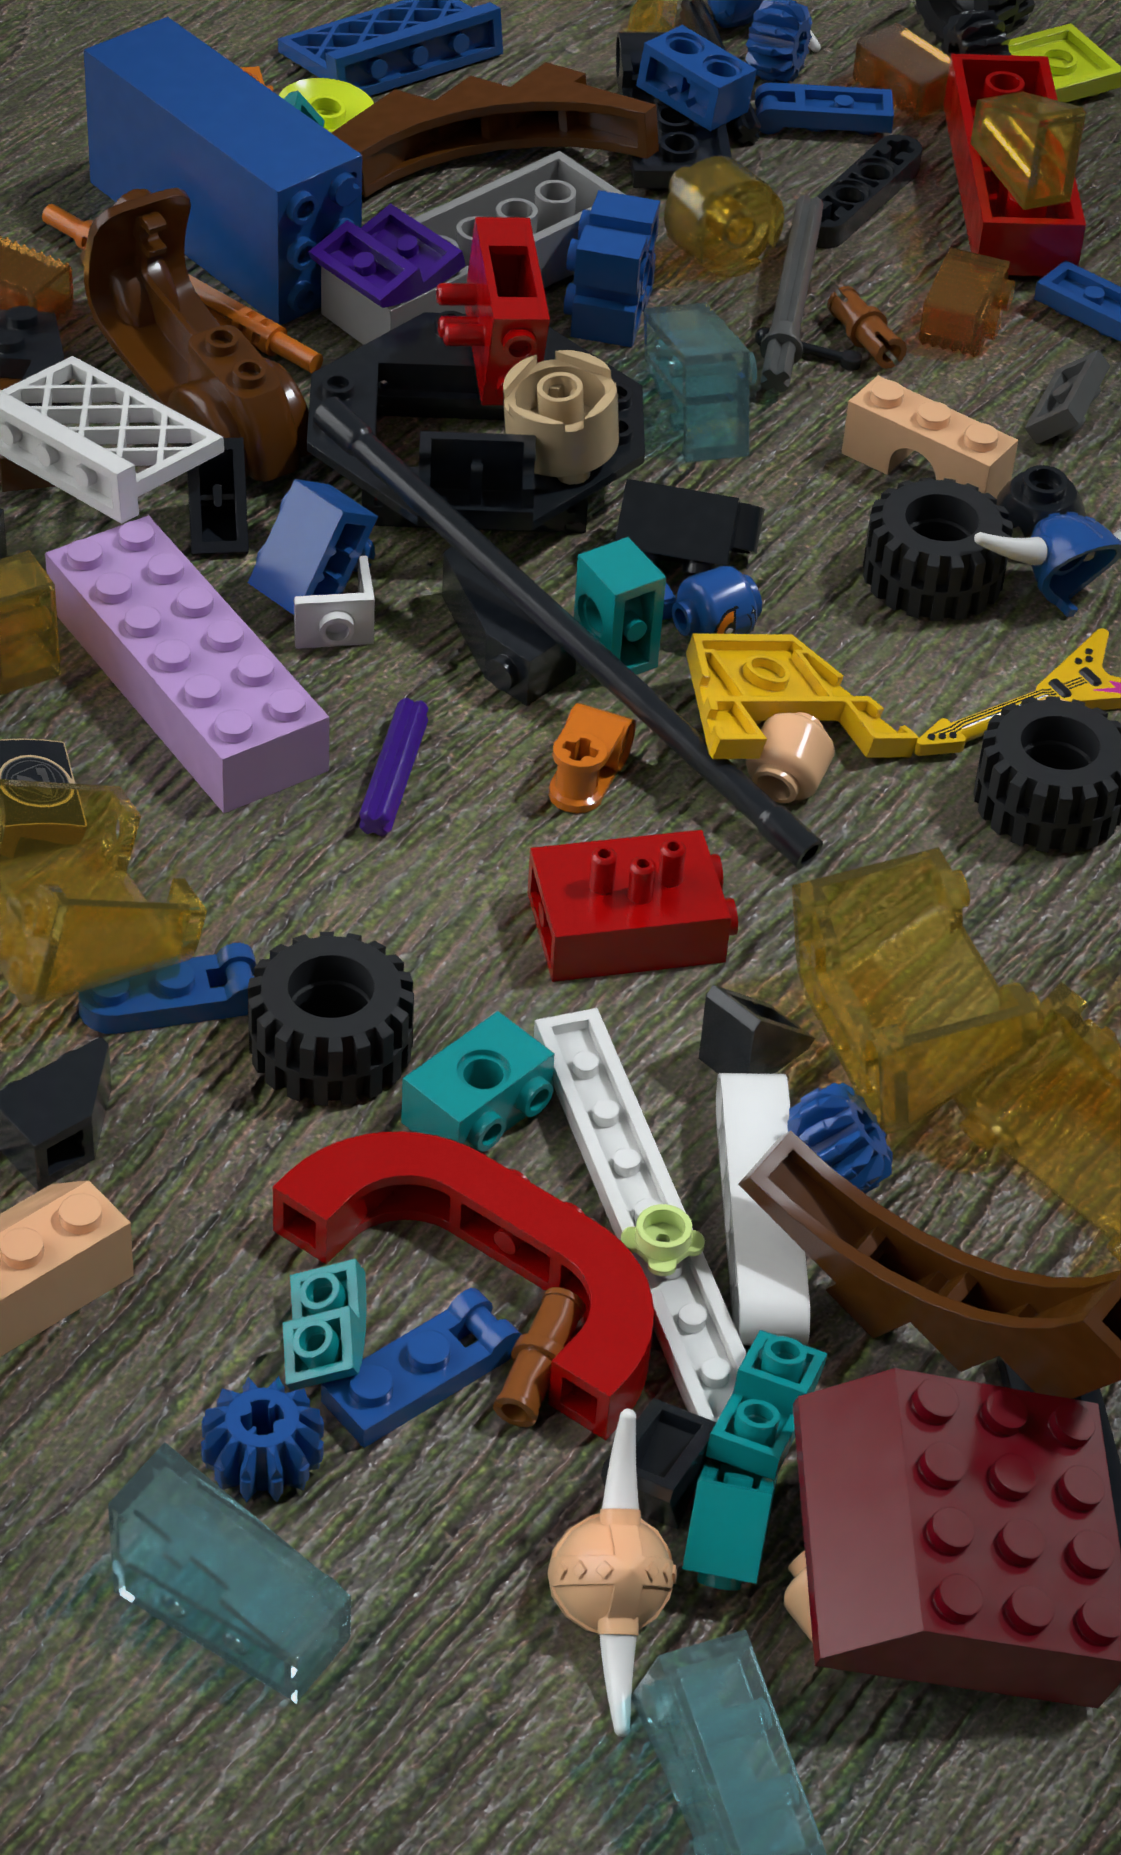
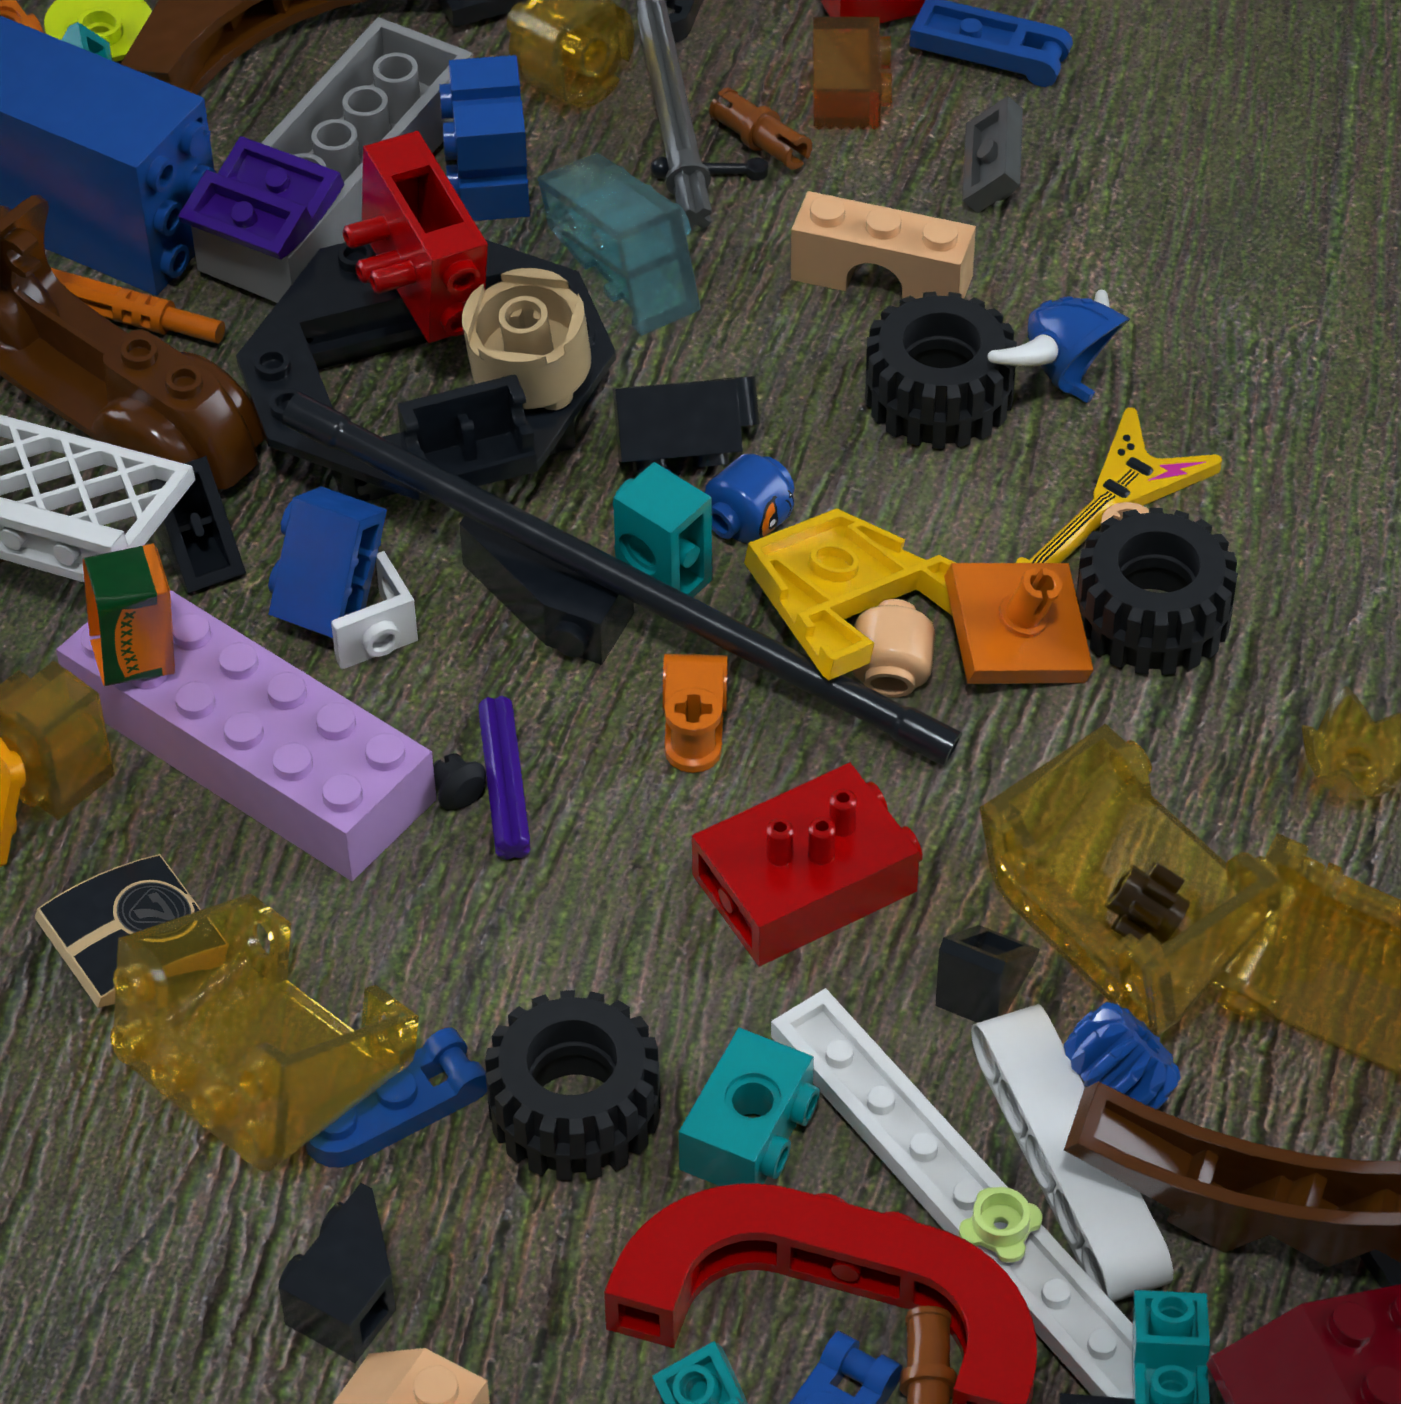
camera: 15 degrees left, 5 degrees up
(106, 527) = (131, 613): none -> piece
(351, 758) = (458, 781): none -> black piece
(915, 767) = (1018, 623): none -> orange tile
(916, 1004) = (1147, 902): none -> dark brown gear
(1037, 494) = (1017, 285): black piece -> none

